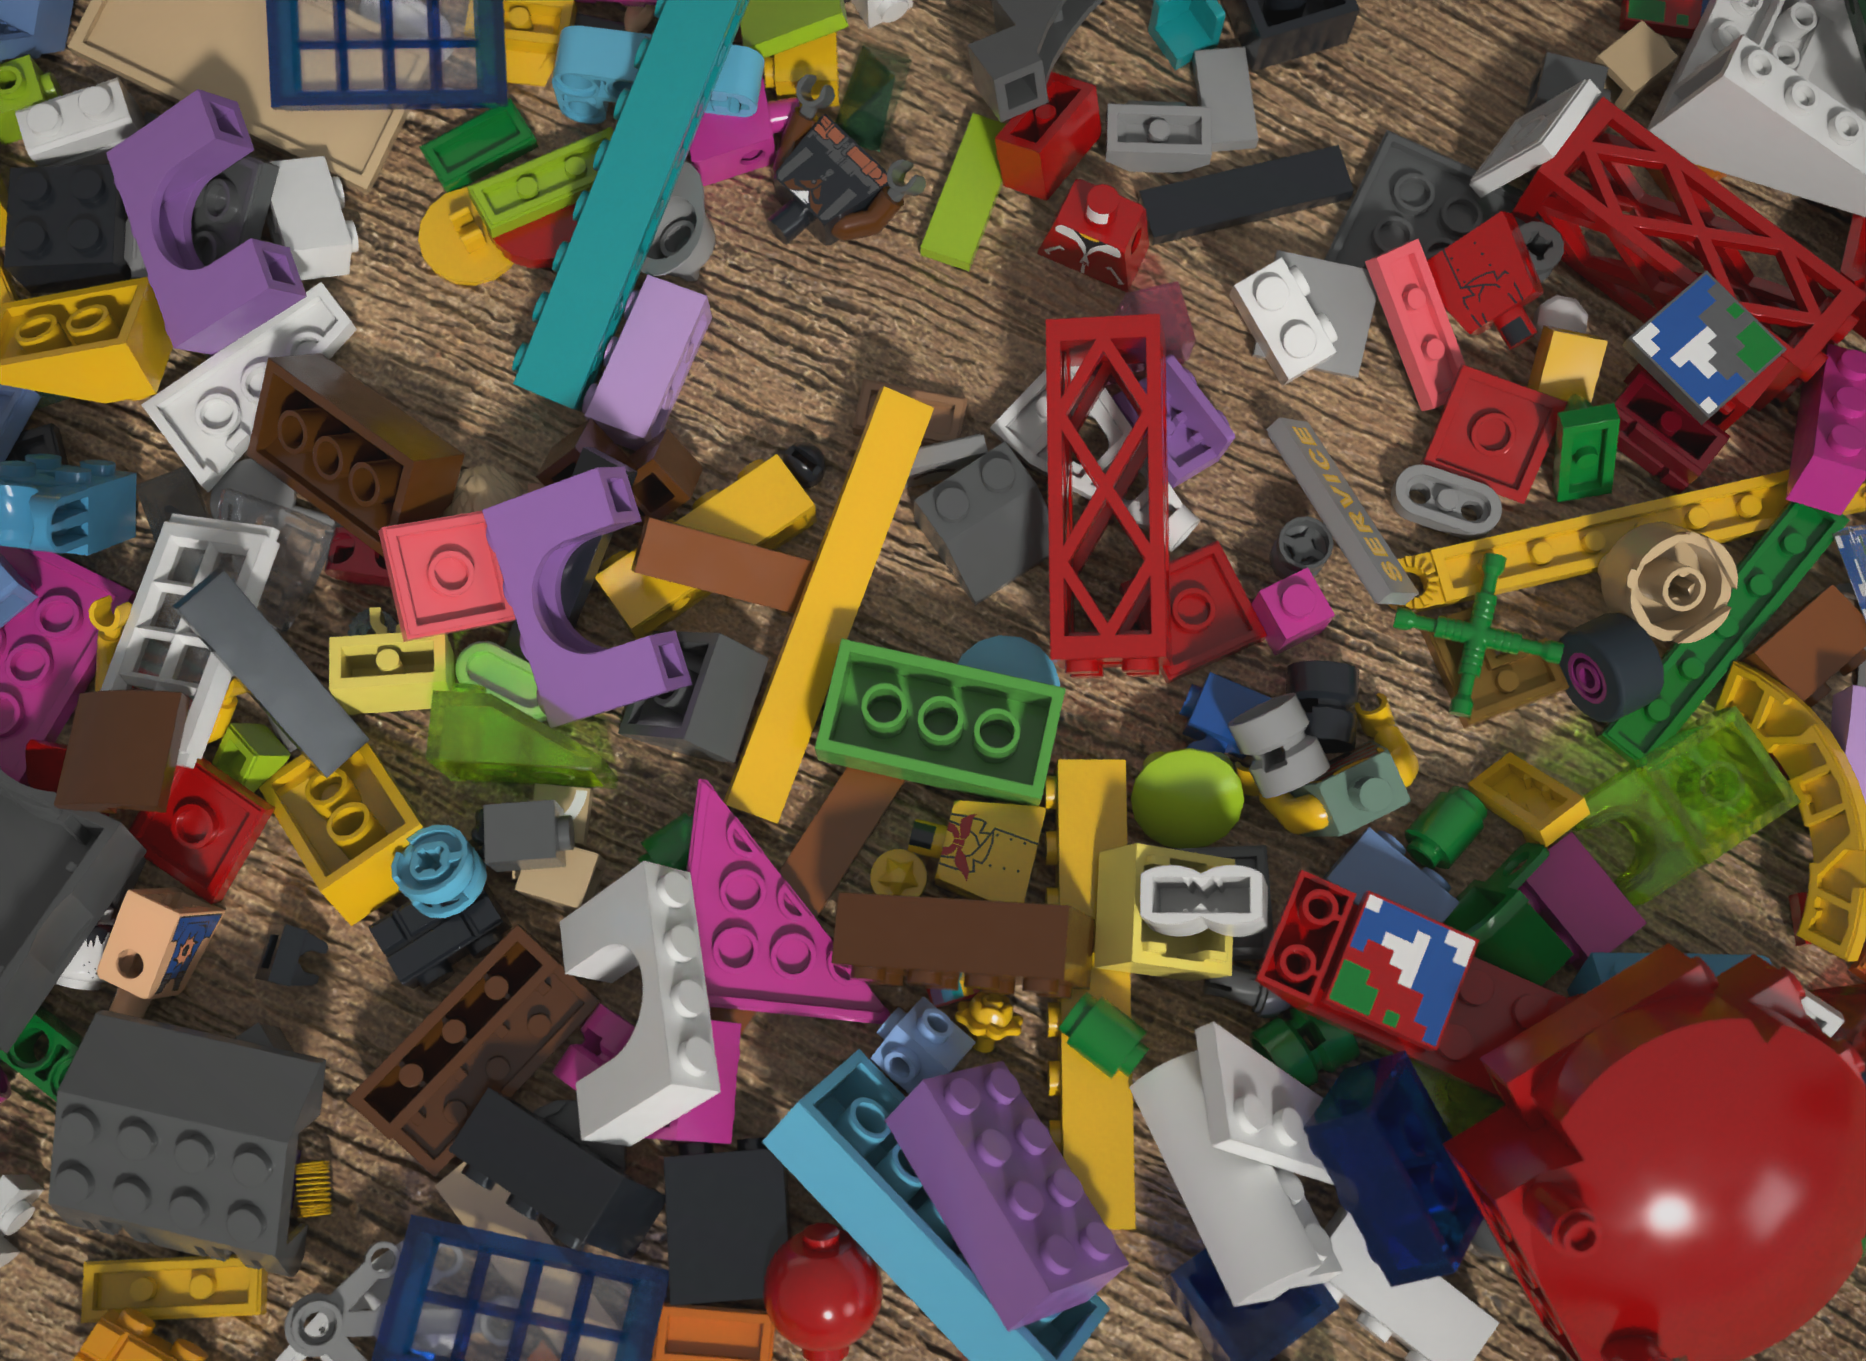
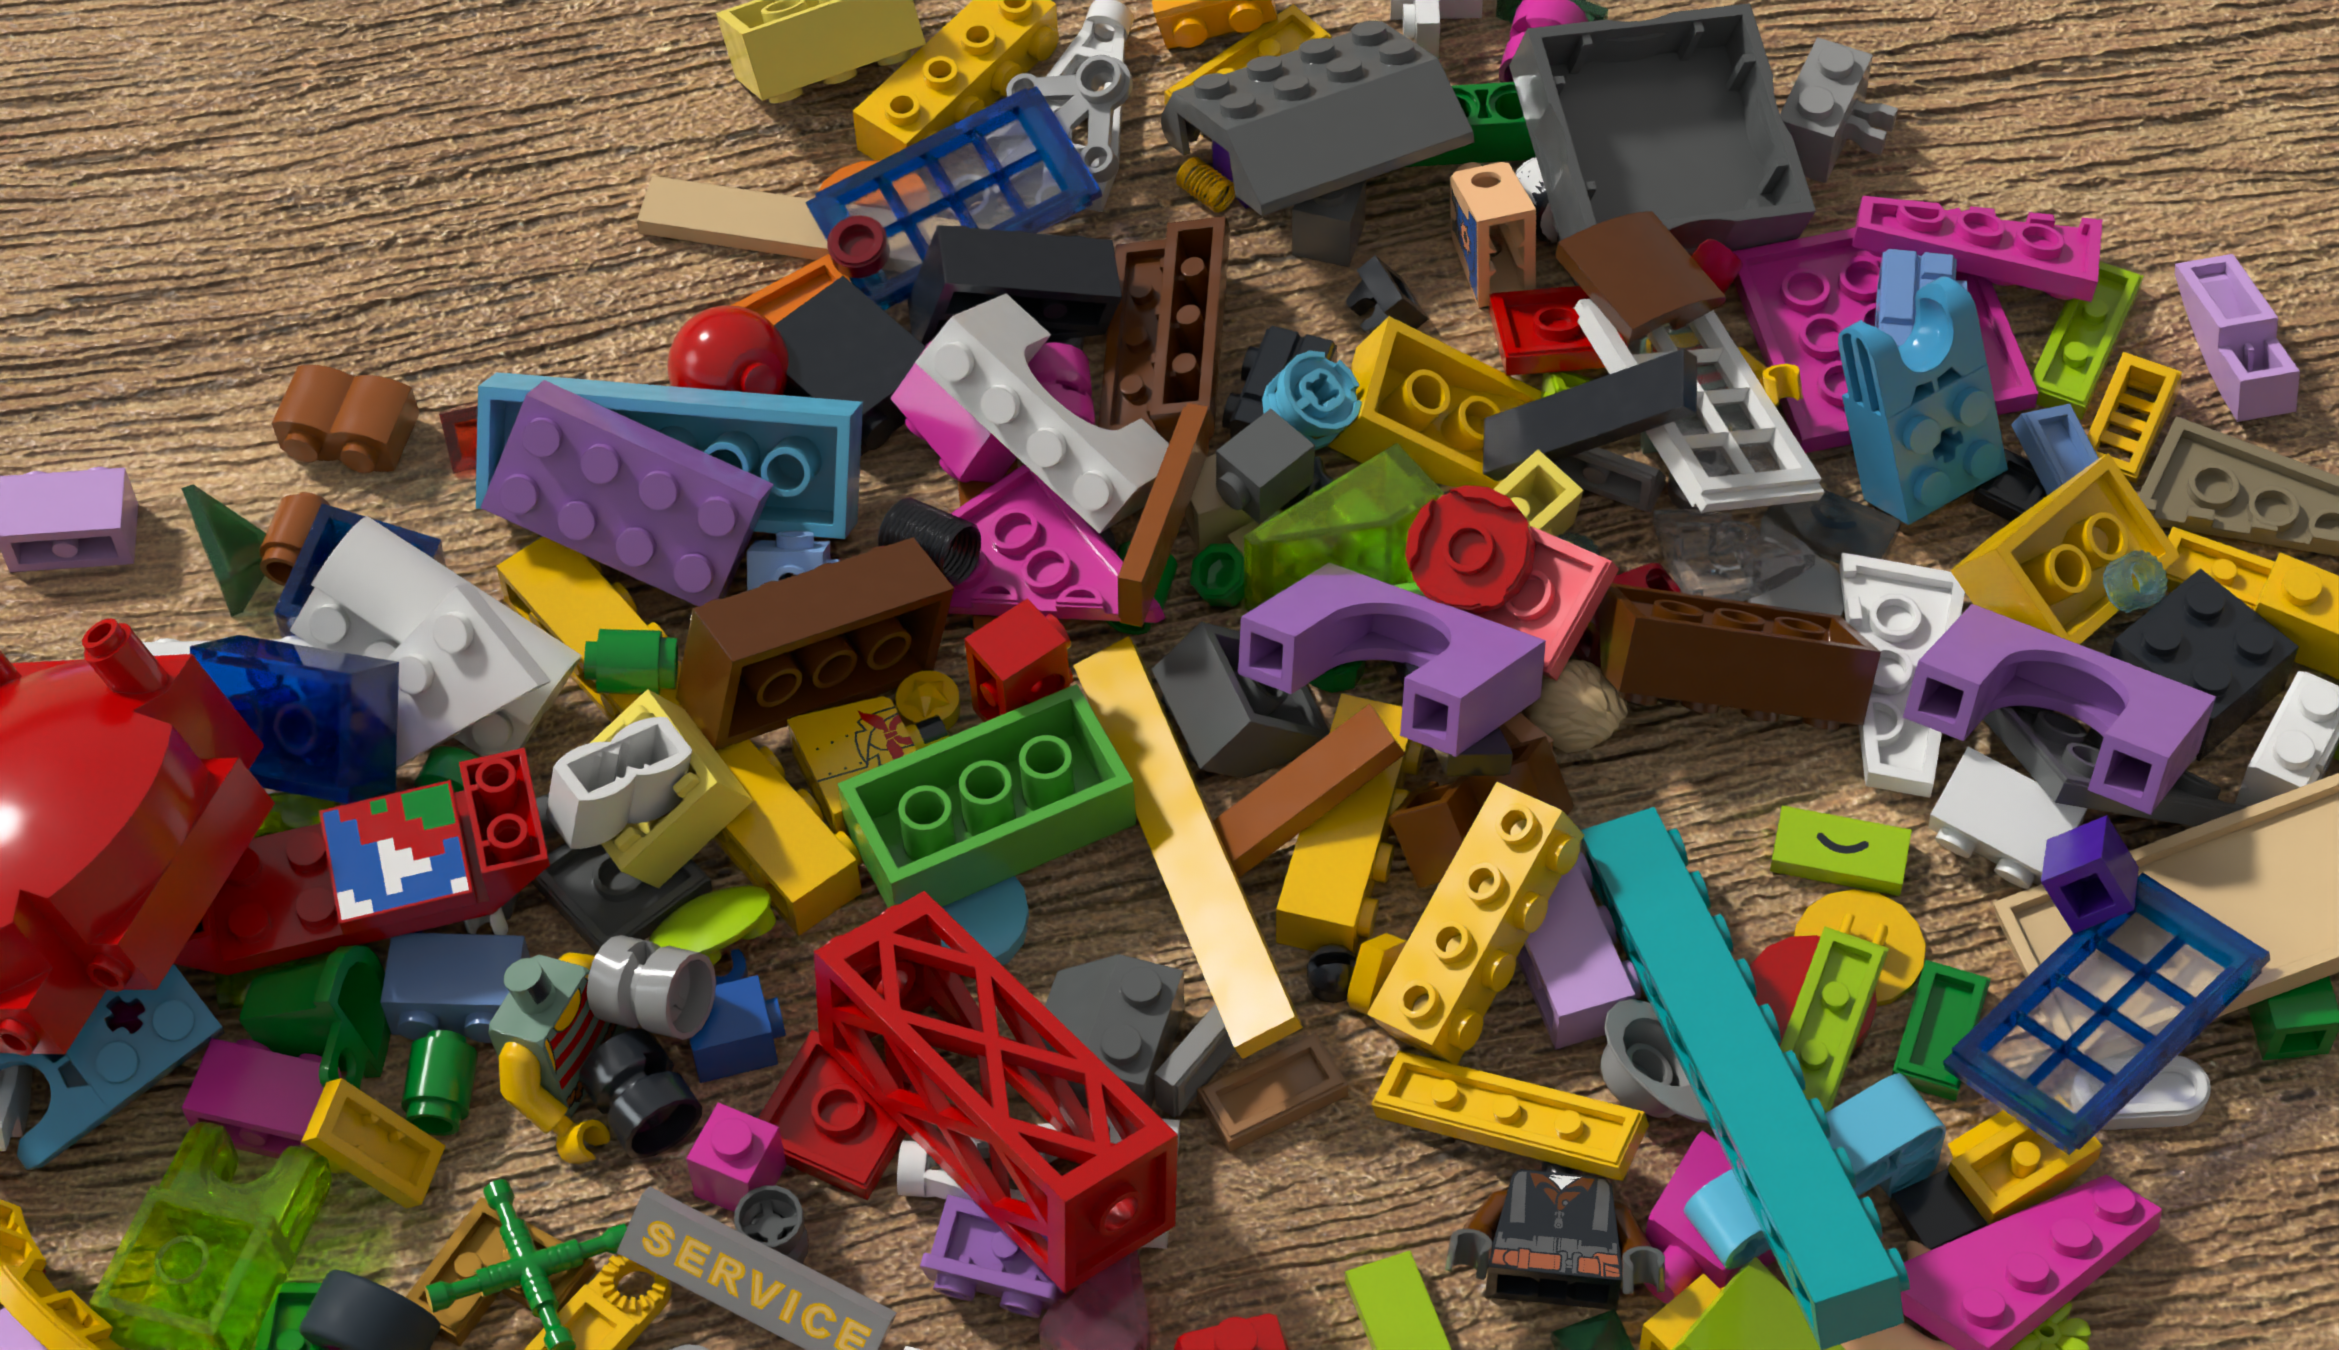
camera: 145 degrees right, 20 degrees down
(54, 287) = (2119, 582): none -> clear light blue axle
(307, 115) = (2090, 874): none -> dark purple brick
(417, 299) = (1841, 850): none -> lime tile
(459, 628) = (1470, 549): none -> red tile
(615, 812) = (1219, 575): none -> green tile
(634, 842) = (1163, 514): none -> dark orange tile
(635, 1325) = (858, 246): none -> dark red tile
(701, 383) = (1477, 924): none -> yellow brick
(778, 434) = (1372, 969): none -> yellow tile
(791, 269) = (1510, 1115): none -> yellow tile
(809, 977) = (946, 539): none -> black piece
(837, 801) = (1017, 660): none -> red brick

